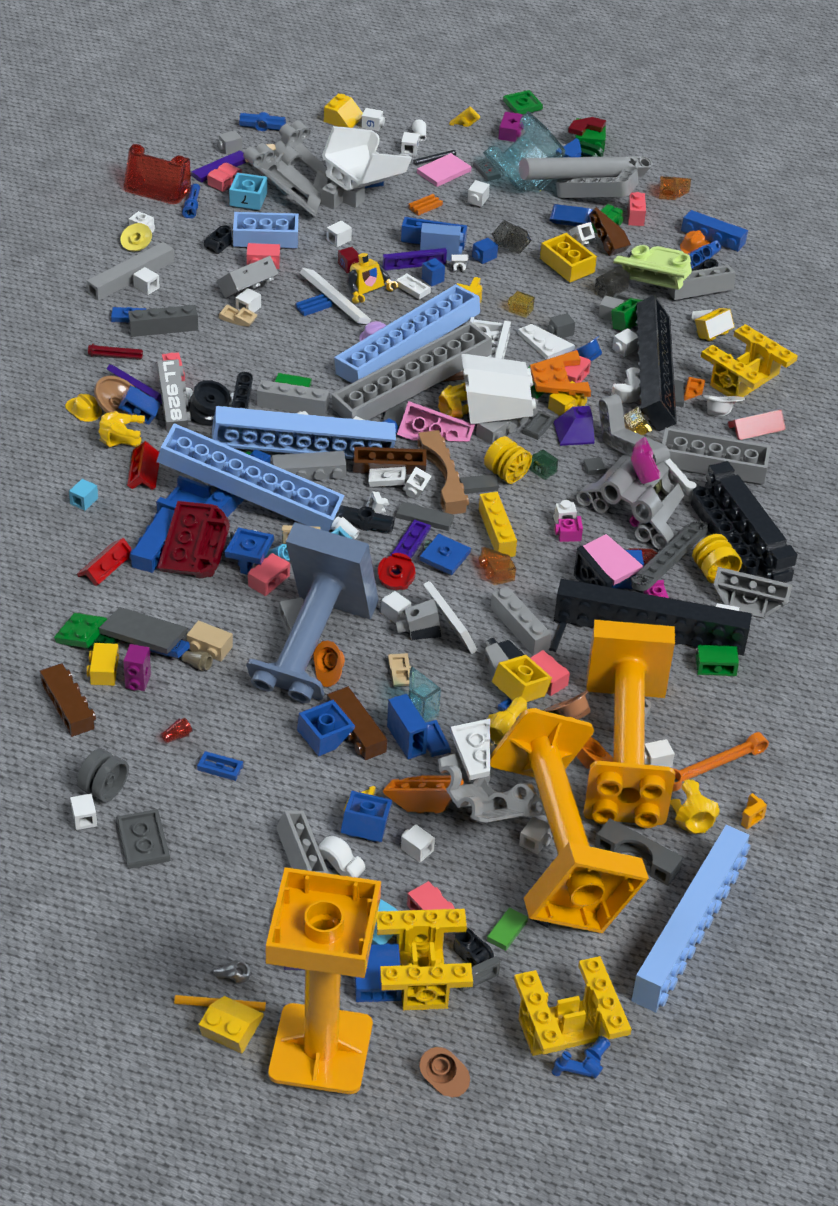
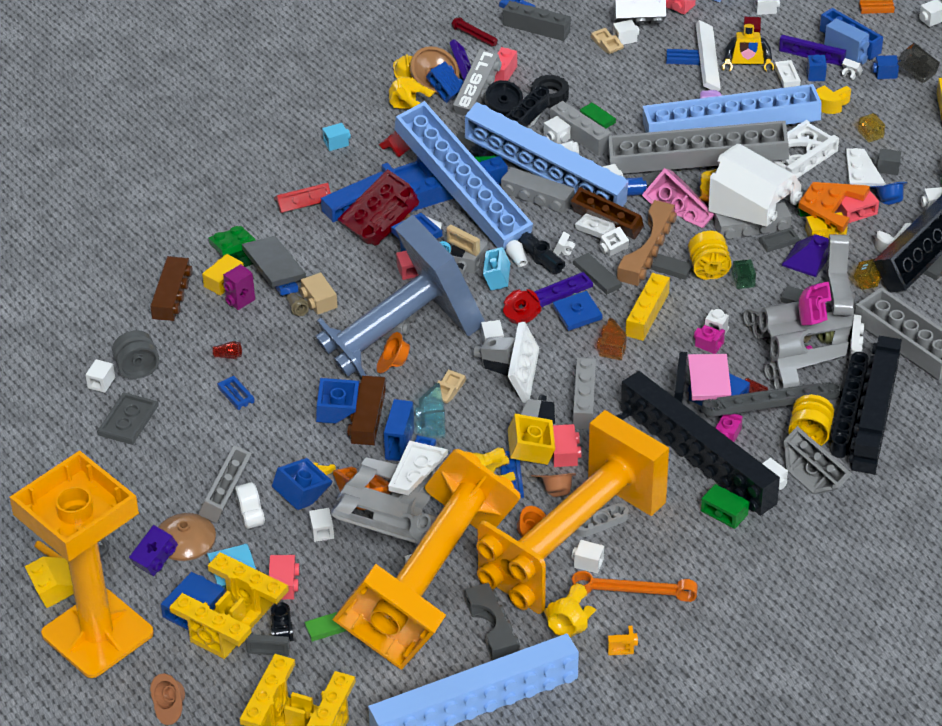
camera: 40 degrees right, 0 degrees up
(230, 368) = (556, 83): none -> black tyre
(275, 404) = (557, 130): none -> white brick

